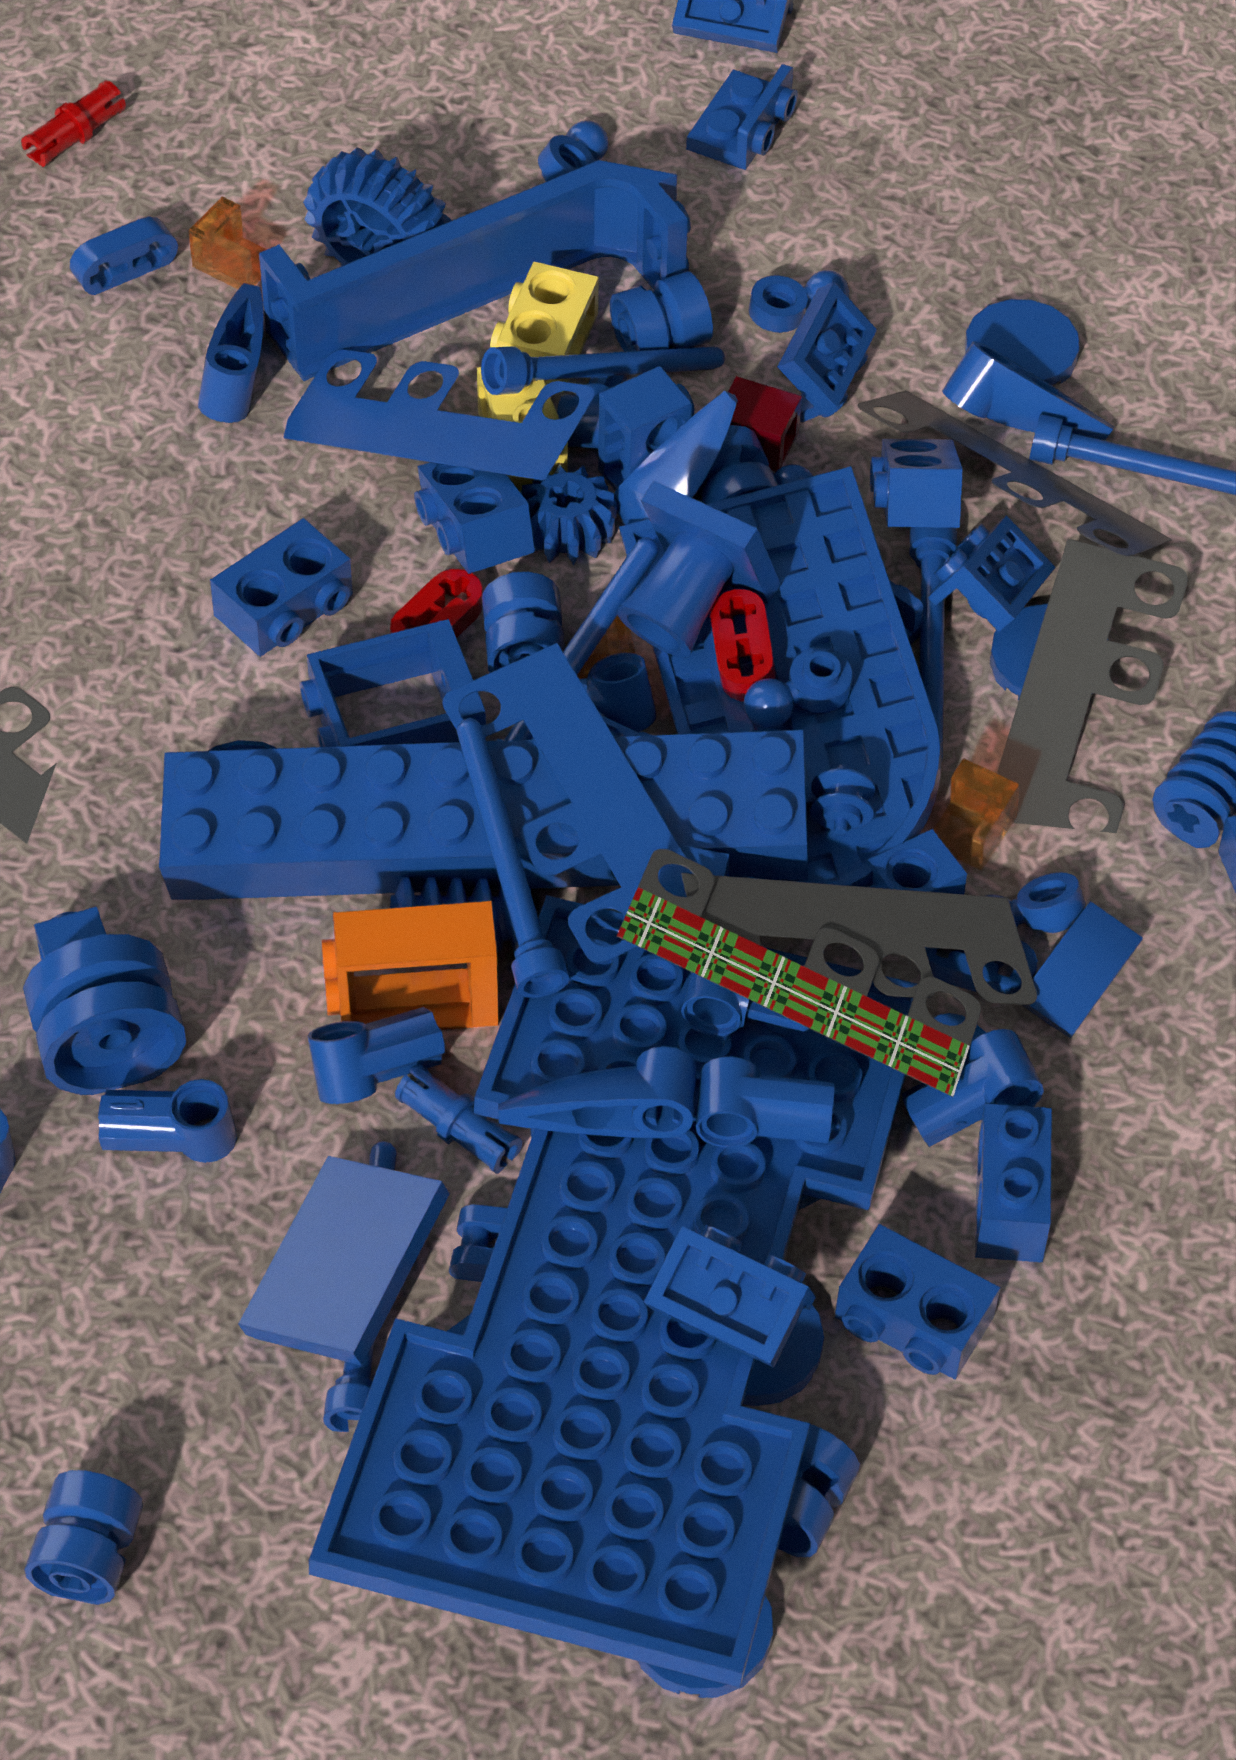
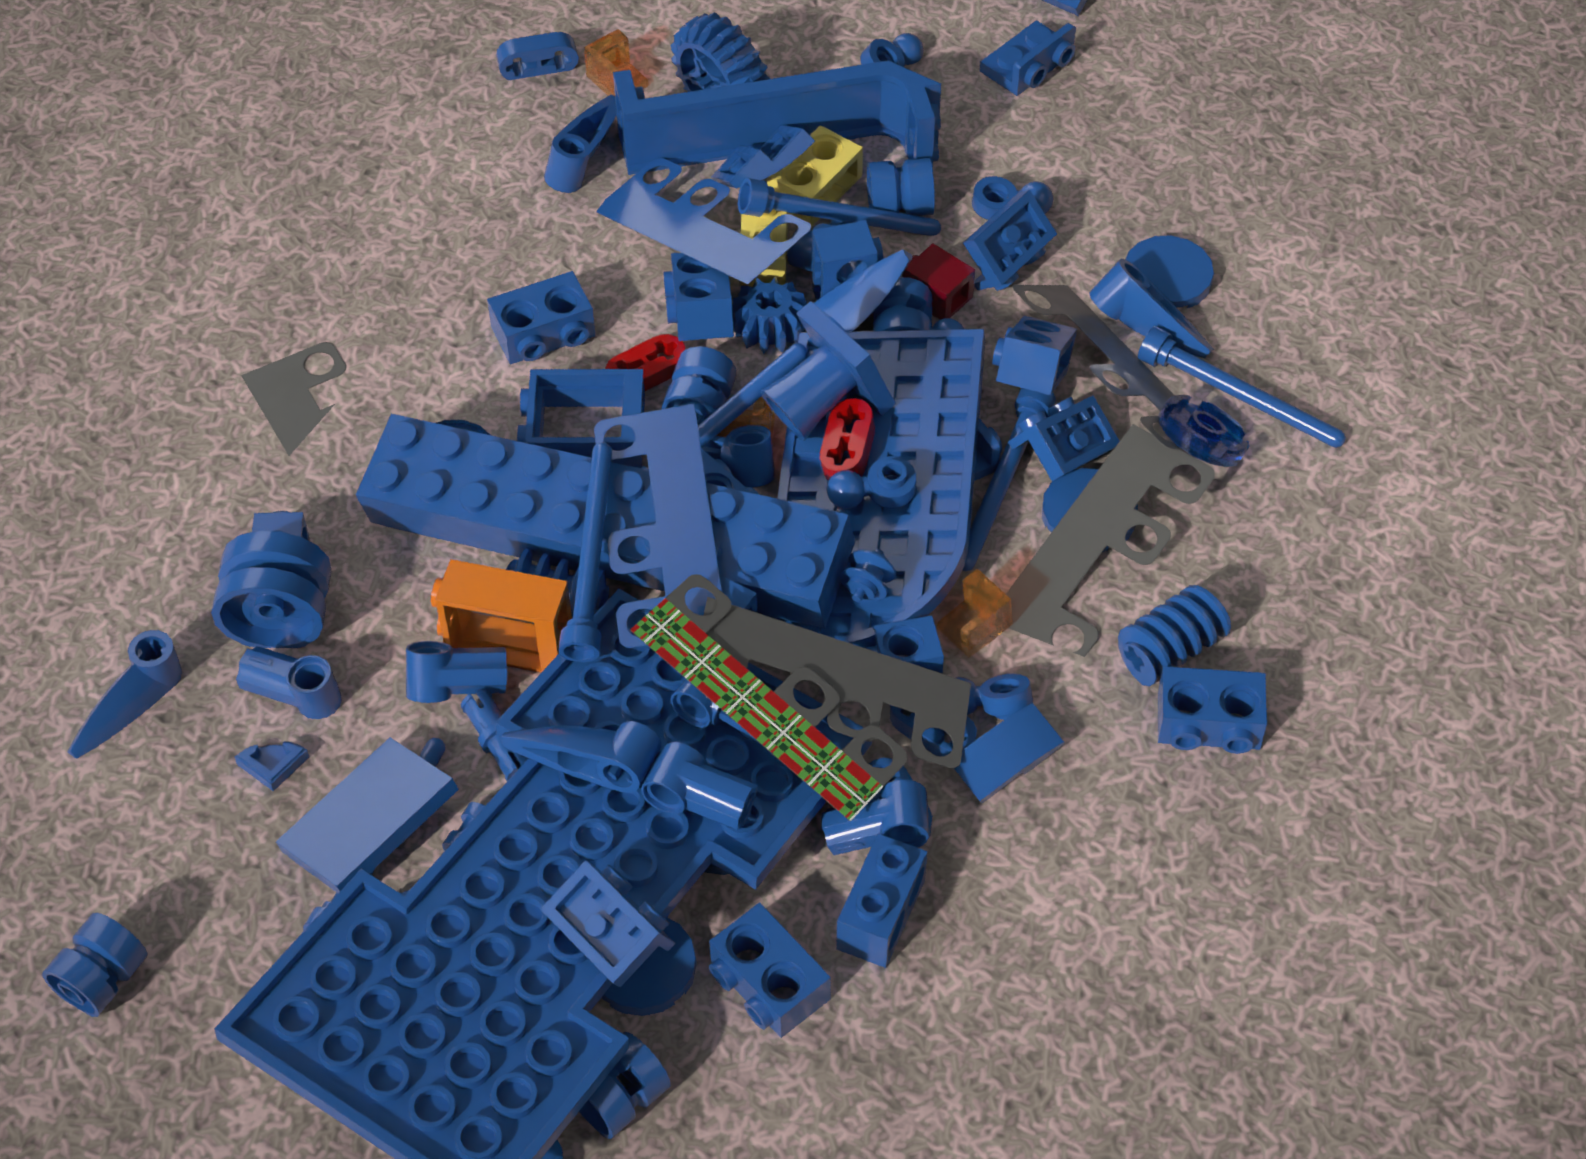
camera: 20 degrees right, 0 degrees up
(185, 1230) = (272, 763): none -> blue tile
(487, 317) = (754, 163): none -> blue slope
(1150, 526) = (1203, 431): none -> clear blue tile

